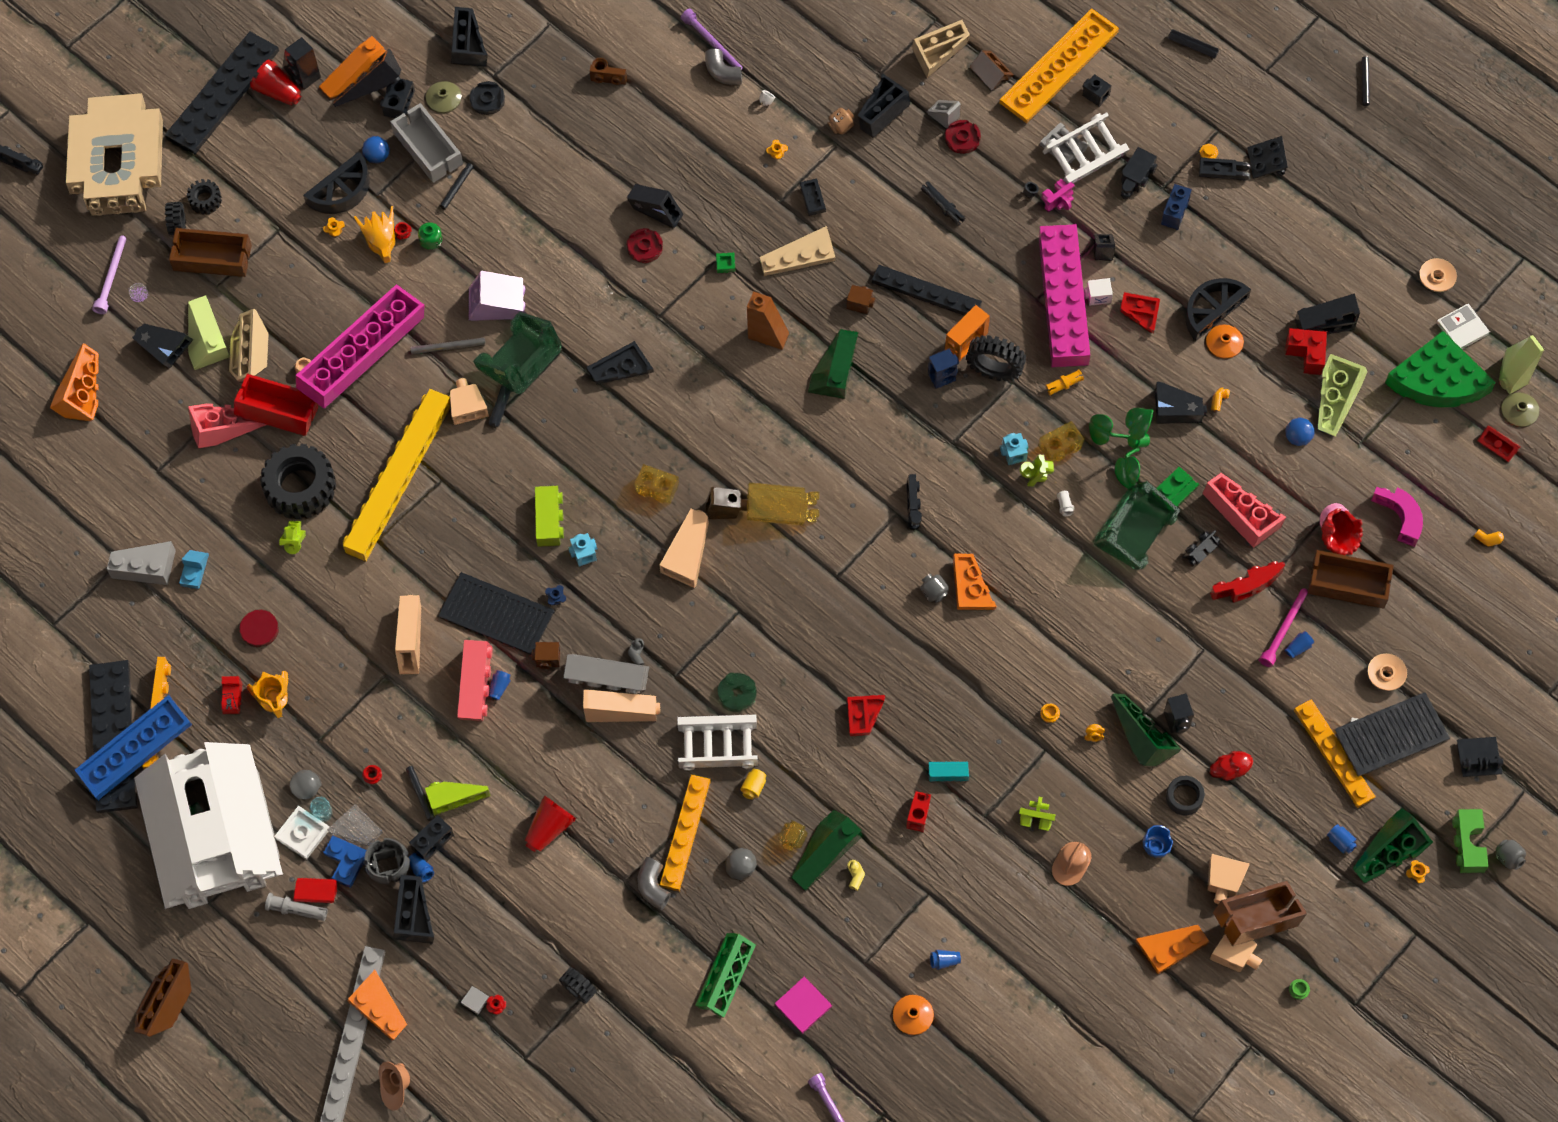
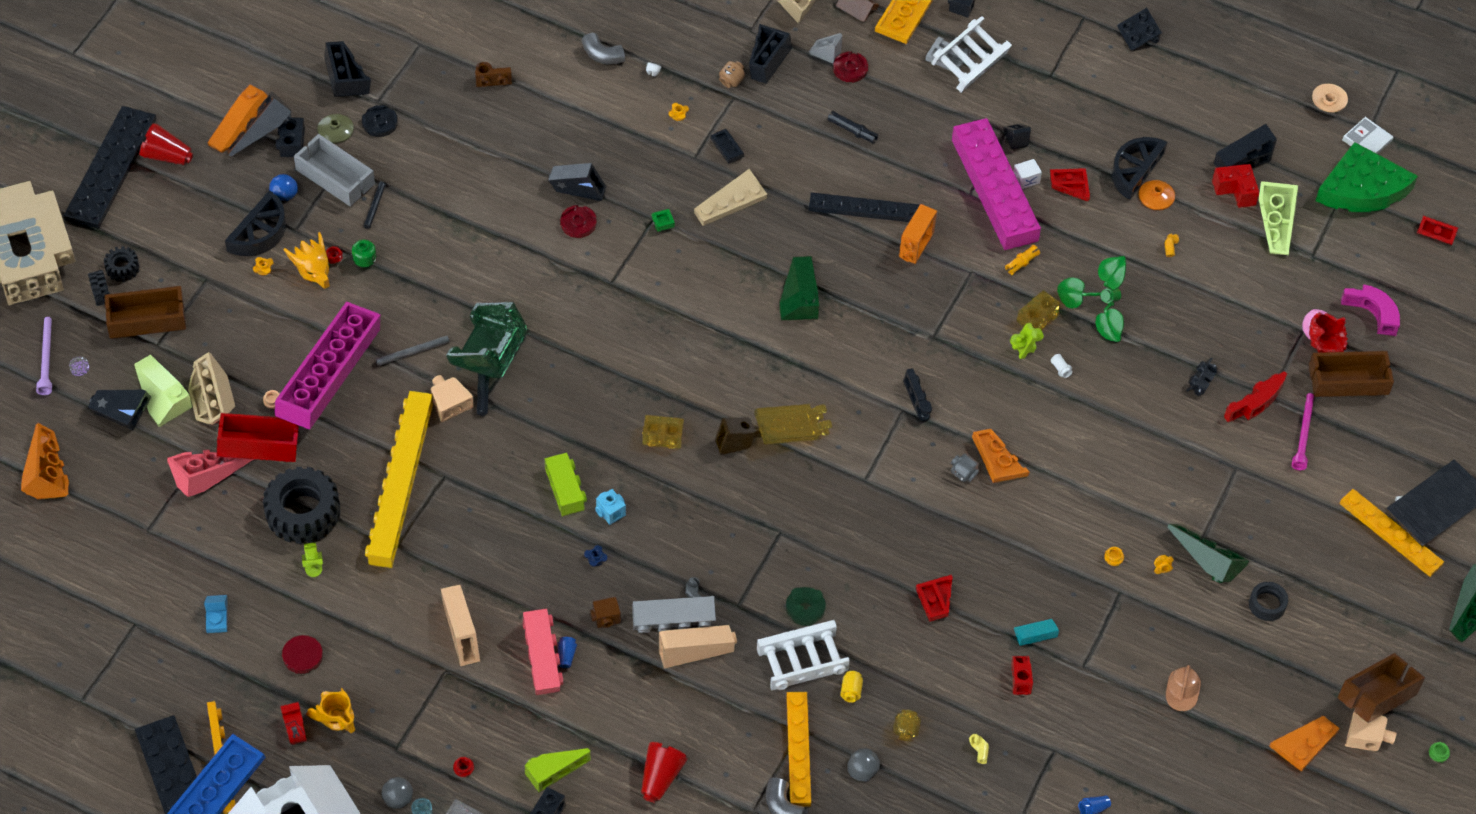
camera: 20 degrees left, 10 degrees down
(143, 563) = (162, 618): light grey wedge -> none
(301, 63) = (187, 121): black wedge -> none
(420, 793) = (518, 774): black bar -> none
(495, 297) = (446, 295): slope -> none
(496, 613) = (541, 586): black window -> none
(621, 364) = (591, 331): black wing -> none
(686, 551) = (712, 488): light nougat slope -> none
(689, 17) = (555, 12): medium lavender piece -> none
(765, 322) = (723, 261): dark orange slope -> none
(829, 843) = (942, 728): dark green wedge -> none
(860, 299) = (804, 226): reddish brown brick -> none
(943, 368) = (905, 269): dark blue brick -> none
(1007, 371) = (954, 261): black tyre -> none
(1014, 448) = (997, 326): medium azure brick -> none
(1027, 815) = (1126, 652): lime hips -> none
(1029, 186) = (931, 99): black hinge -> none
(1061, 198) = (962, 100): dark pink hips -> none
(1136, 524) = (1135, 368): clear green windscreen -> none
(1137, 171) = (1024, 64): black hinge -> none
(1157, 841) = (1258, 648): blue hair -> none
(1176, 206) = (1072, 87): dark blue brick -> none
(1177, 406) = (1140, 256): black slope -> none
(1178, 486) = (1159, 331): green plate -> none
(1178, 713) = (1237, 527): black brick -> none
(1209, 151) = (1083, 36): light orange plate -> none
(1223, 169) = (1102, 47): black hinge -> none
(1225, 876) = (1333, 665): light nougat torso -> none
(1231, 765) = (1301, 564): red arm -> none
(1243, 510) = (1229, 335): coral wedge -> none
(1299, 431) = (1255, 257): blue hair -> none
(1300, 644) = (1325, 442): blue cone -> none
(1342, 839) = (1428, 606): blue brick -> none
(1393, 666) = (1413, 442): light nougat dish -> none
(1490, 539) = (1460, 314): light orange arm -> none
(1515, 415) = (1444, 198): olive dish -> none
(1519, 364) = (1434, 153): yellowish green wedge -> none

